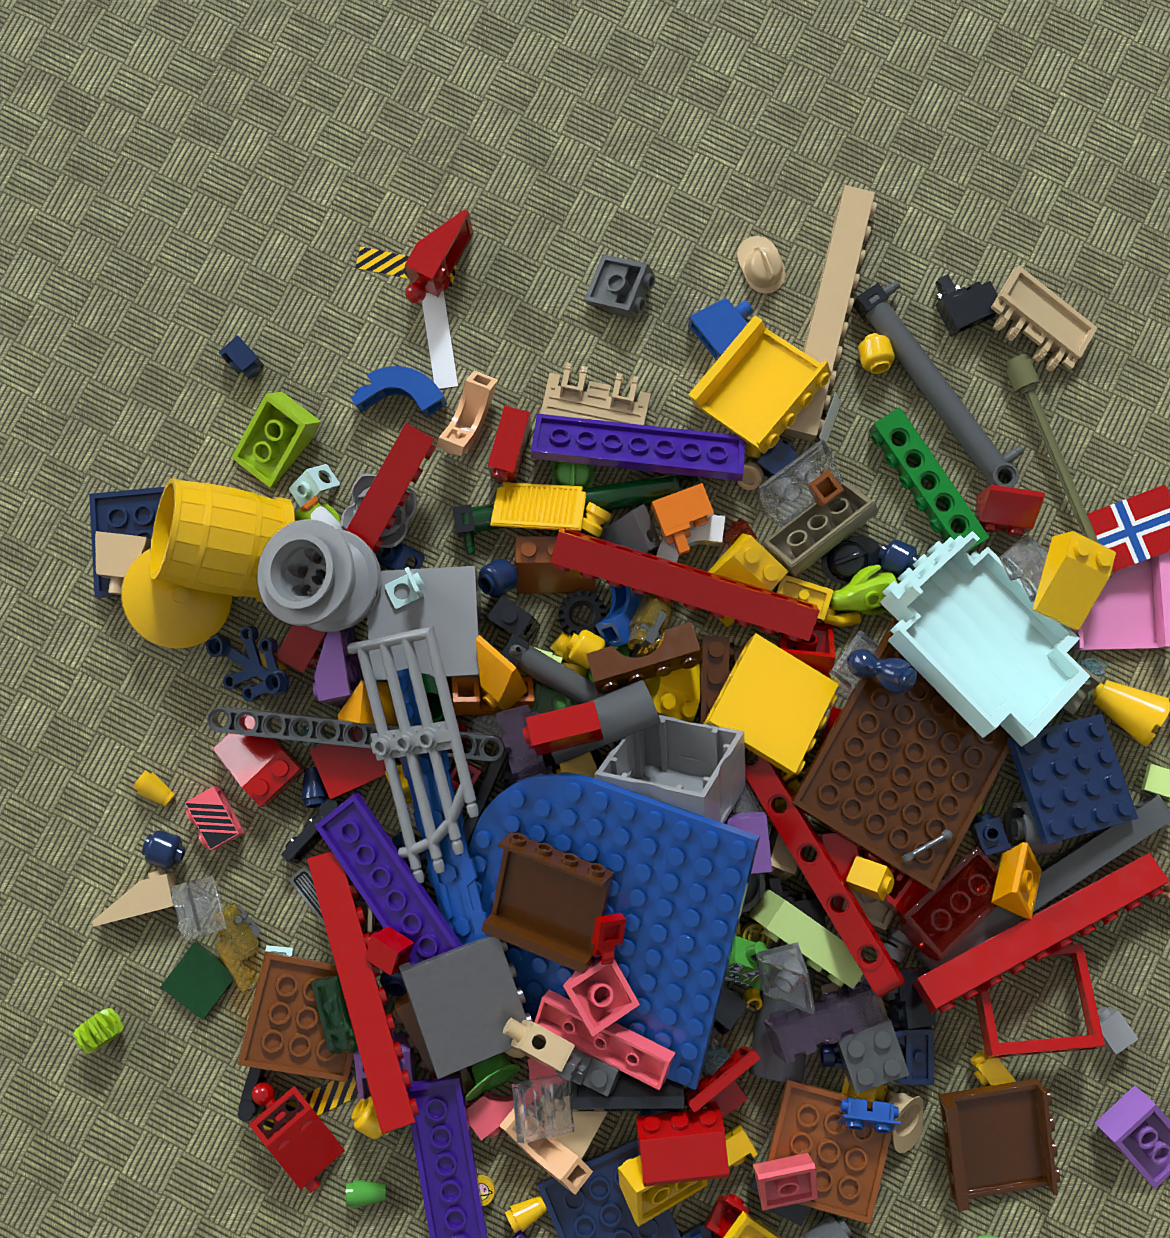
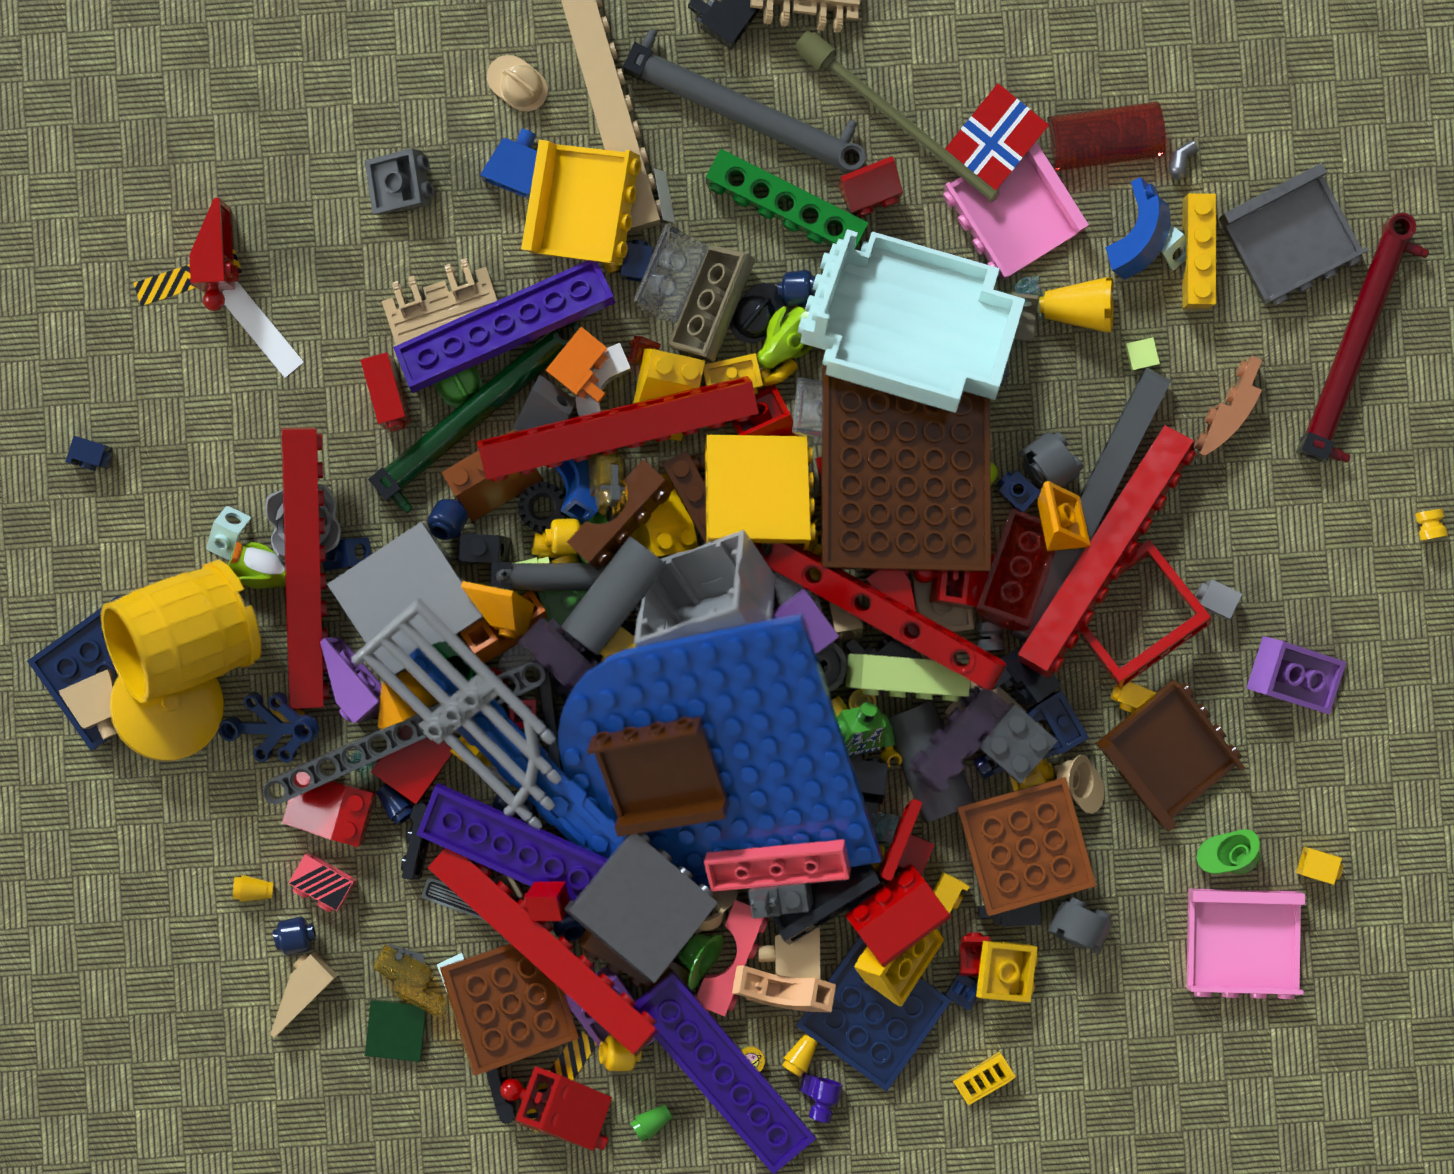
camera: 30 degrees left, 5 degrees up
(98, 1030) = (334, 1123): lime gear -> none
(198, 908) = (357, 965): clear slope -> none
(275, 437) = (165, 509): lime slope -> none
(334, 1015) = (533, 986): clear green plate -> none
(341, 585) = (313, 607): light grey wheel -> none
(400, 381) = (249, 390): blue arch -> none
(415, 584) = (374, 568): light aqua bracket -> none
(469, 415) = (331, 384): light nougat arch -> none
(539, 506) = (446, 433): yellow window -> none
(539, 1043) = (732, 900): tan torso -> none
(542, 1108) = (760, 956): clear slope -> none
(563, 728) = (584, 620): red brick -> none
(595, 517) = (503, 415): yellow wheel -> none
(600, 995) = (751, 827): coral slope -> none
(606, 934) = (725, 773): red plate -> none
(752, 476) = (622, 290): tan tile -> none
(786, 976) = (902, 719): clear slope -> none
(786, 1181) = (1003, 893): coral slope -> none
(825, 488) = (694, 265): dark orange slope -> none
(870, 878) = (929, 592): yellow brick -> none
(876, 353) = (671, 108): yellow head -> none
(880, 1117) = (1053, 793): blue hinge -> none
(891, 673) = (844, 402): dark blue animal -> none
(946, 835) = (974, 515): dark grey hinge -> none
(1025, 562) = (922, 228): clear slope -> none
(1072, 578) = (961, 220): yellow slope -> none
(1072, 780) = (1060, 400): dark blue plate -> none

